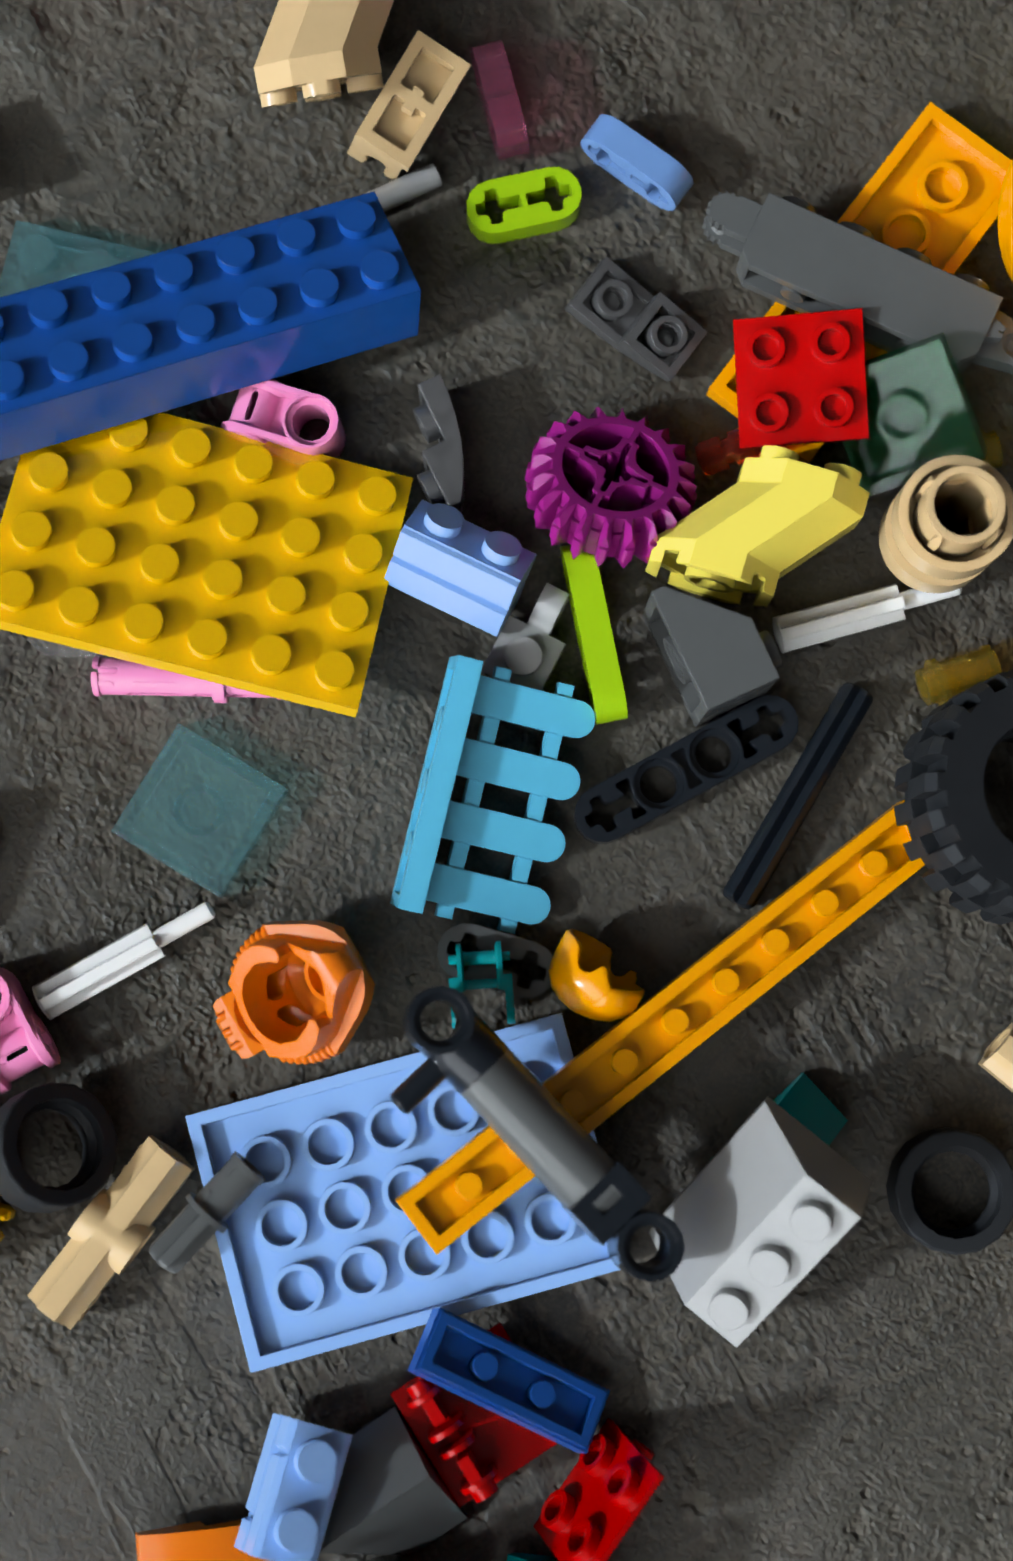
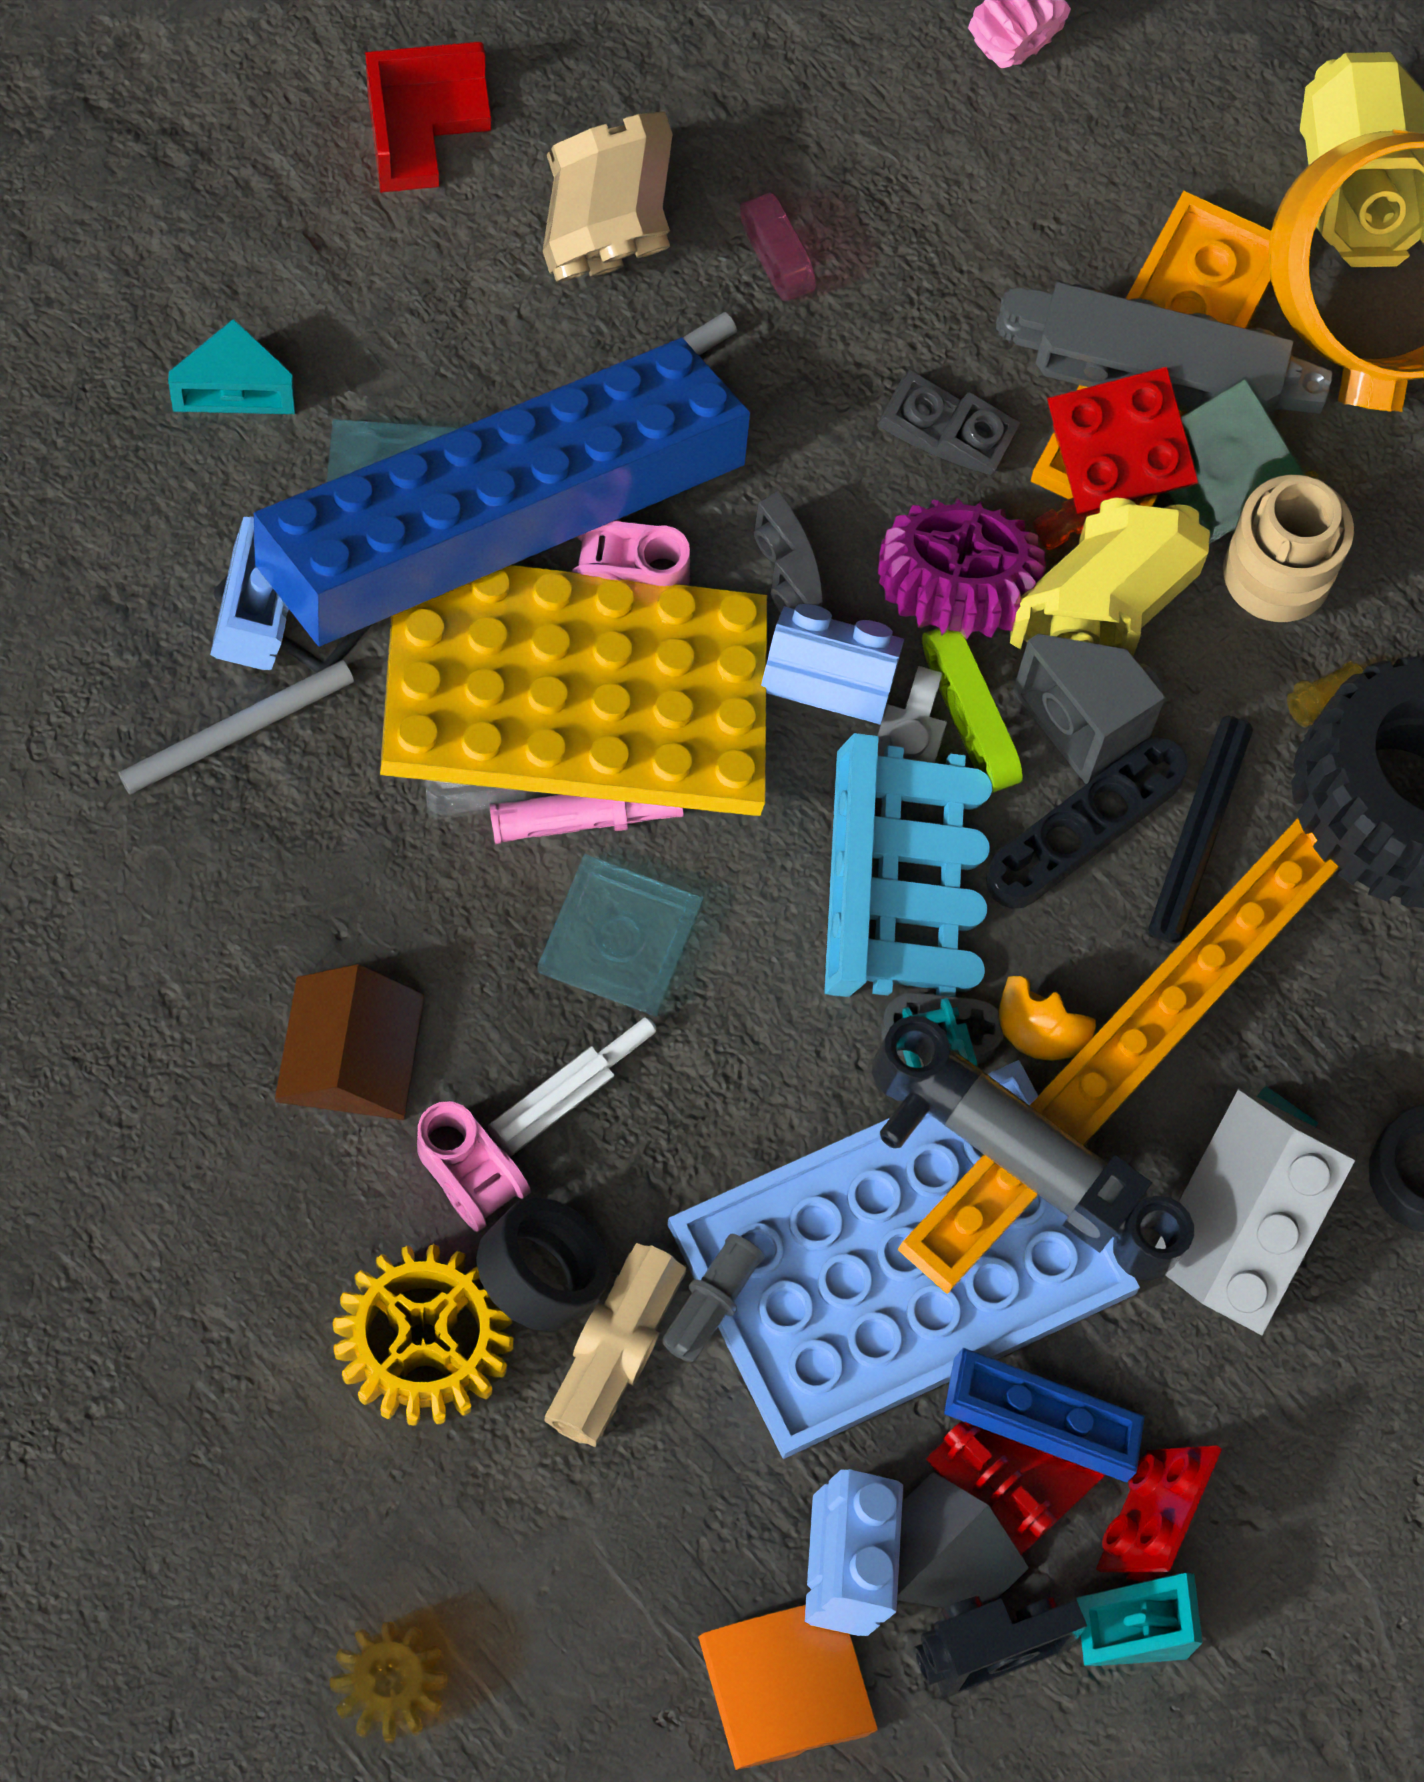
camera: 15 degrees left, 15 degrees down
(295, 993) = (755, 1079): orange helmet -> none
(409, 105) = (694, 262): tan hinge -> none
(520, 191) = (818, 336): lime beam -> none
(637, 162) = (919, 283): medium blue beam -> none
(848, 616) = (1220, 654): white axle -> none

